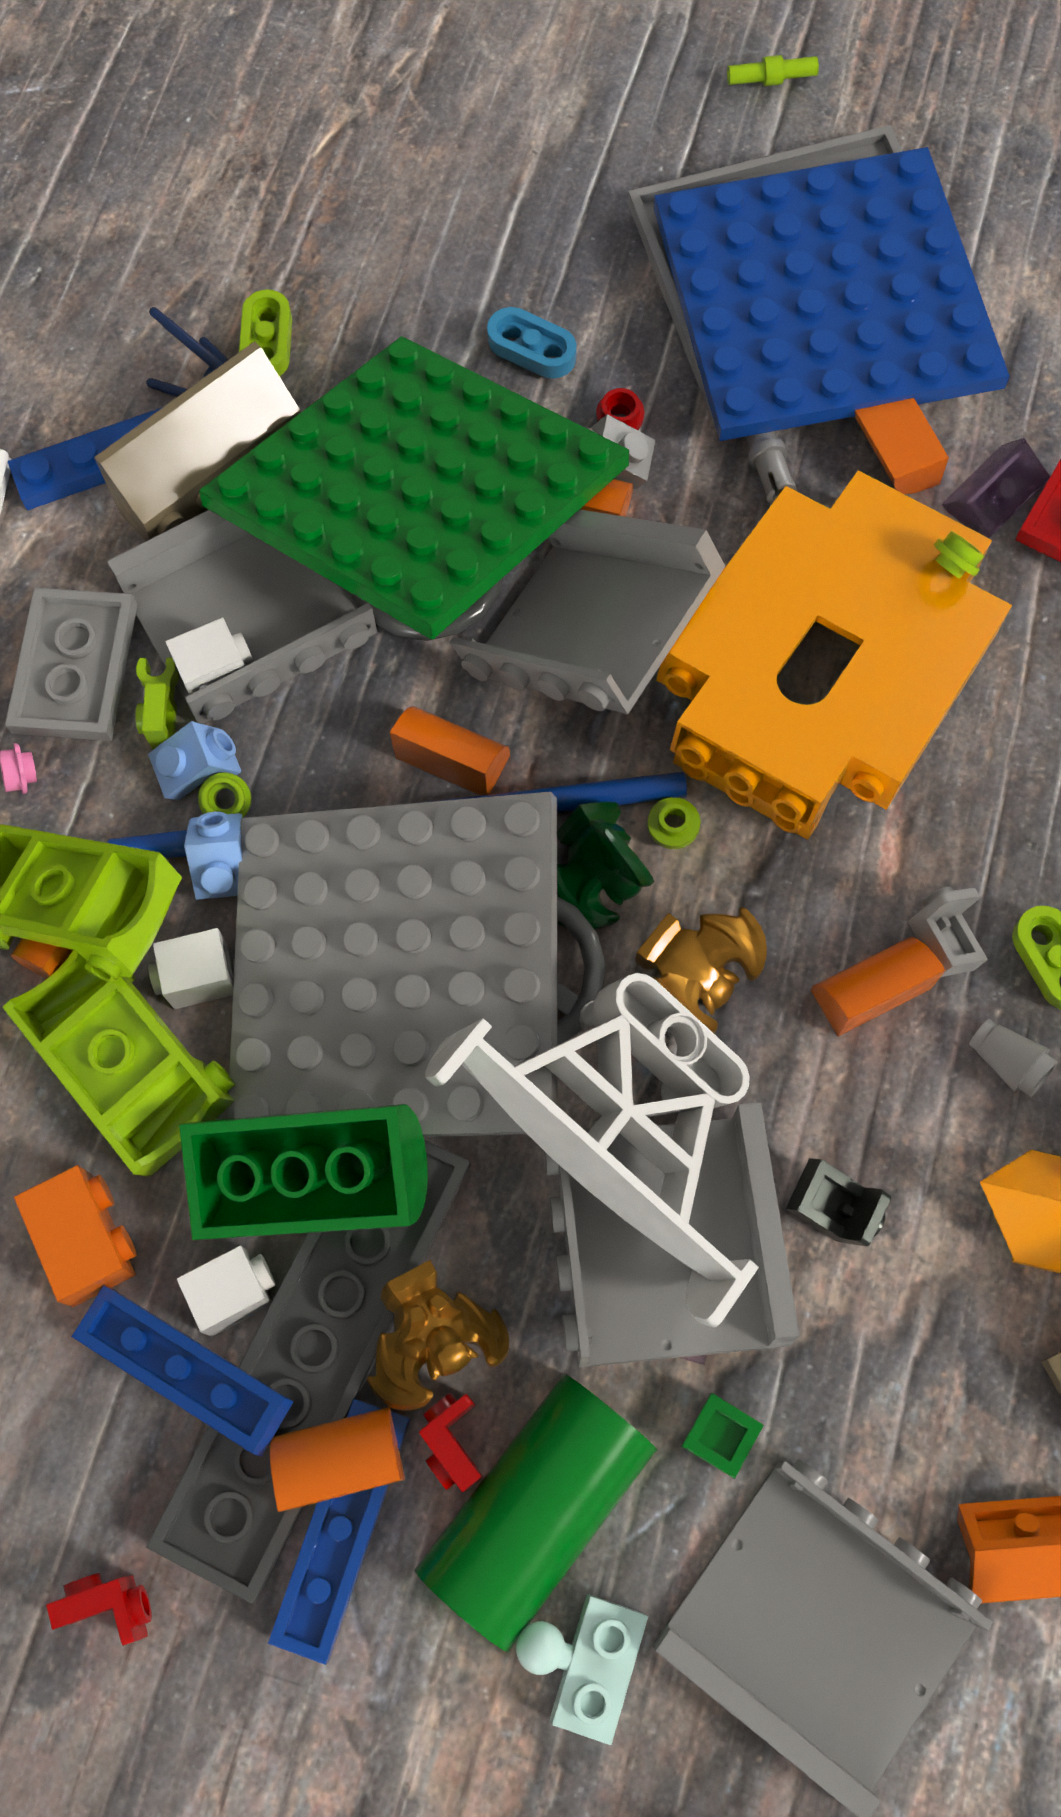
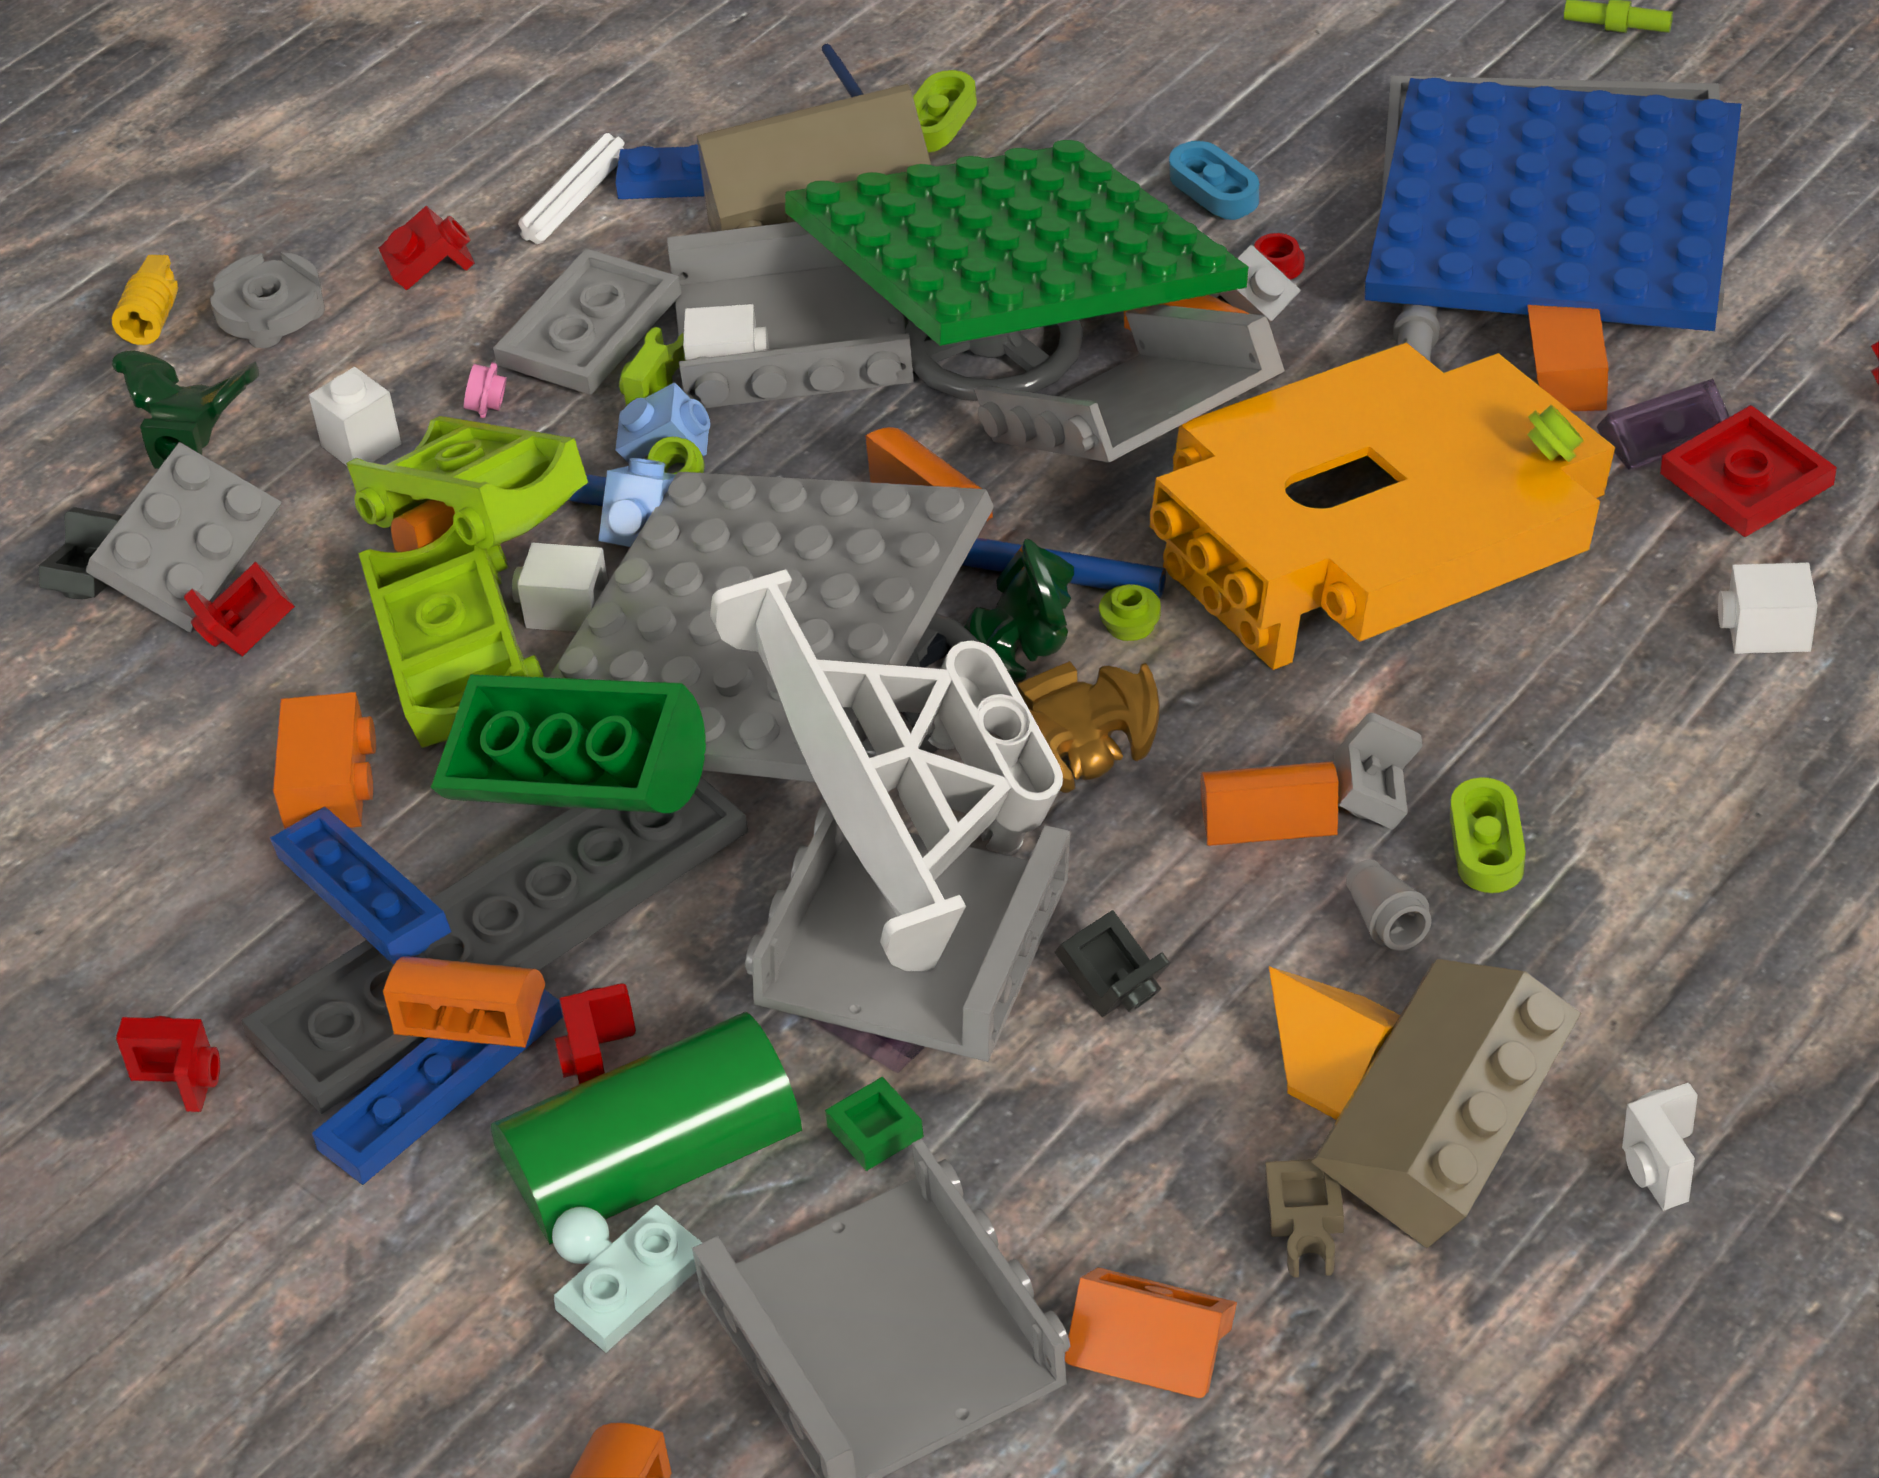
camera: 25 degrees right, 25 degrees down
(227, 1290) = (440, 843): white brick -> none
(433, 1332) = (619, 916): pearl gold animal -> none

